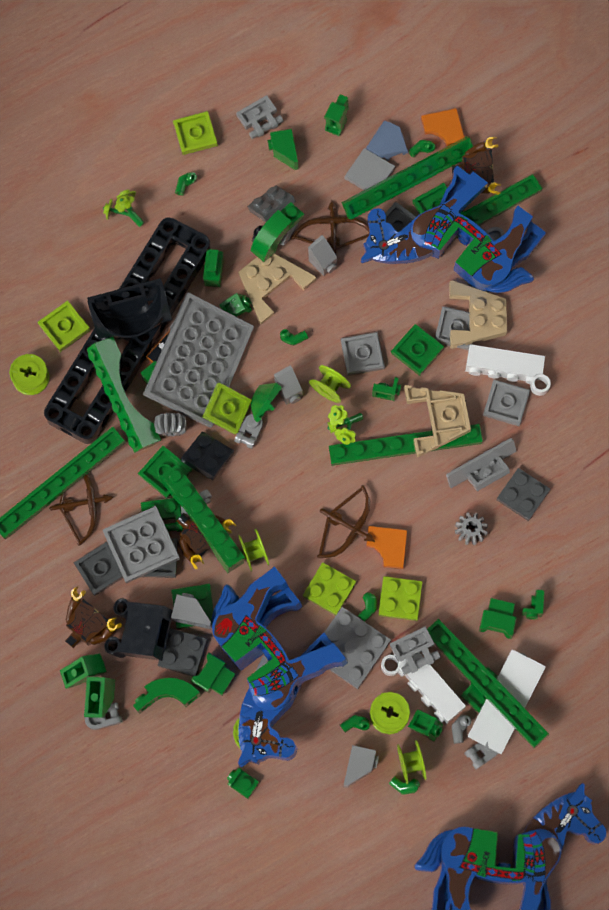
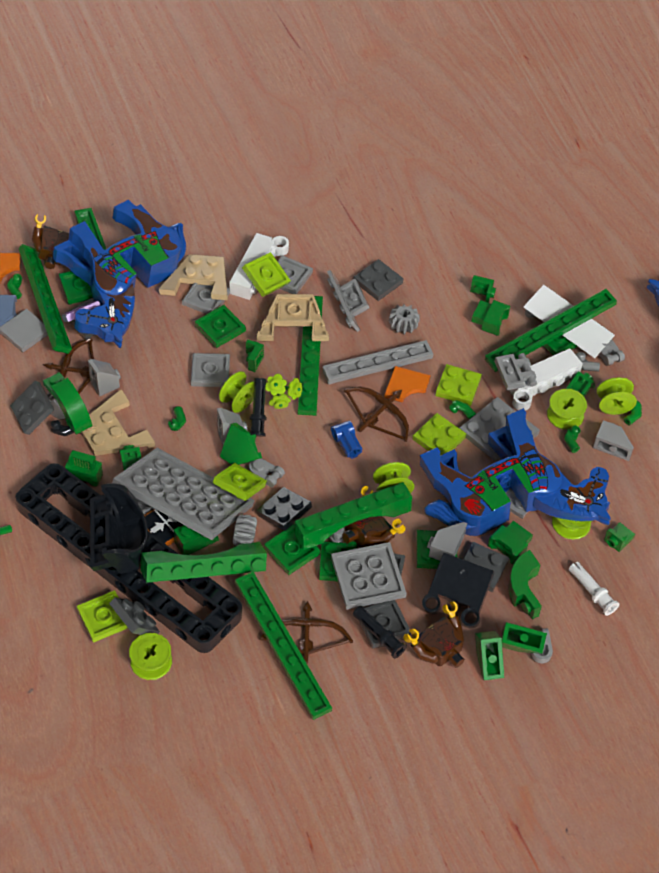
camera: 85 degrees left, 20 degrees down
(59, 350) = (134, 616): none -> dark grey plate
(77, 571) = (385, 637): none -> black pin
(168, 768) = (599, 594): none -> white pin
(304, 408) = (258, 417): none -> black pin
(308, 495) = (345, 435): none -> blue piece
(393, 214) = (69, 316): none -> lavender plate
(408, 512) = (377, 362): none -> light grey plate
(486, 377) = (266, 274): none -> lime plate

